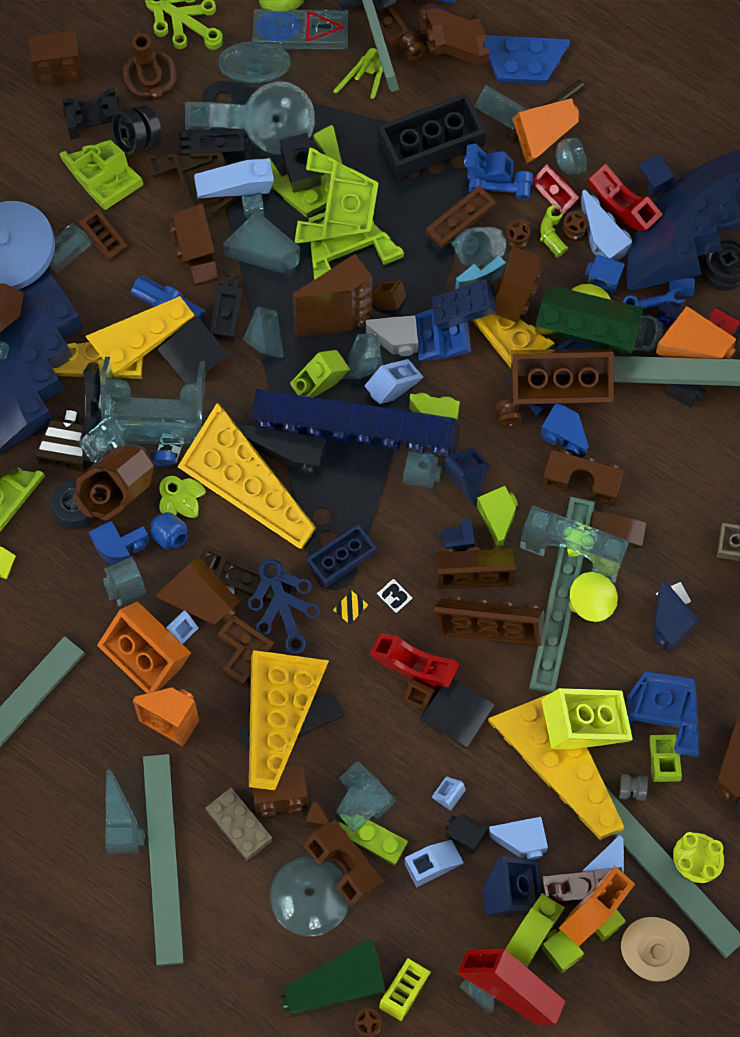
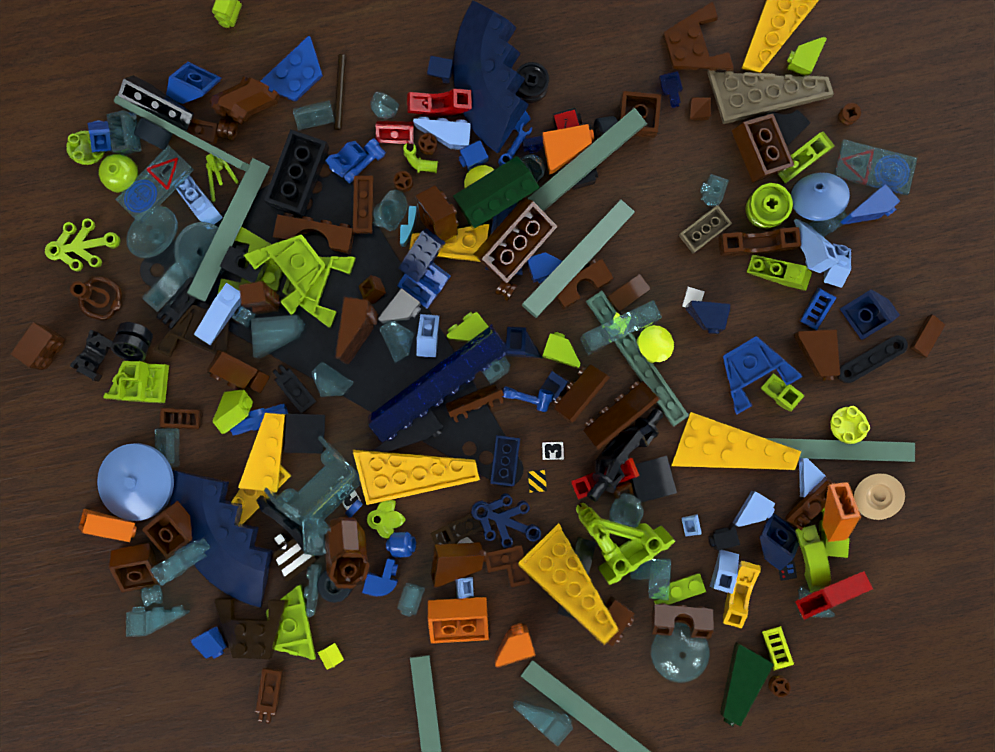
camera: 50 degrees left, 15 degrees up
(44, 489) = (311, 591): none -> clear light blue hinge
(154, 267) = (232, 410): none -> lime slope
(239, 824) = (606, 657): dark tan piece -> none
(286, 188) = (259, 297): none -> reddish brown arch
(316, 817) = (643, 611): reddish brown slope -> none
(320, 374) = (385, 374): lime slope -> none
(321, 77) = (198, 201): none -> light blue slope
(321, 122) = (228, 230): none -> sand green tile
(362, 745) = (621, 560): none -> lime plate
(372, 478) = (474, 400): none -> reddish brown plate
(399, 711) = (626, 510): none -> clear light blue hair
(408, 223) = (339, 237): none -> reddish brown arch
(426, 896) = (737, 603): none -> yellow arch
(431, 646) = (617, 453): none -> black plate
(433, 539) = (542, 401): none -> blue brick
(493, 930) = (788, 572): none -> black sticker
(543, 126) = (352, 103): orange slope -> none
(586, 718) = (725, 416): neon yellow slope -> none
(602, 448) = (578, 259): none -> sand green tile
(633, 787) = (782, 422): dark grey wheel -> none

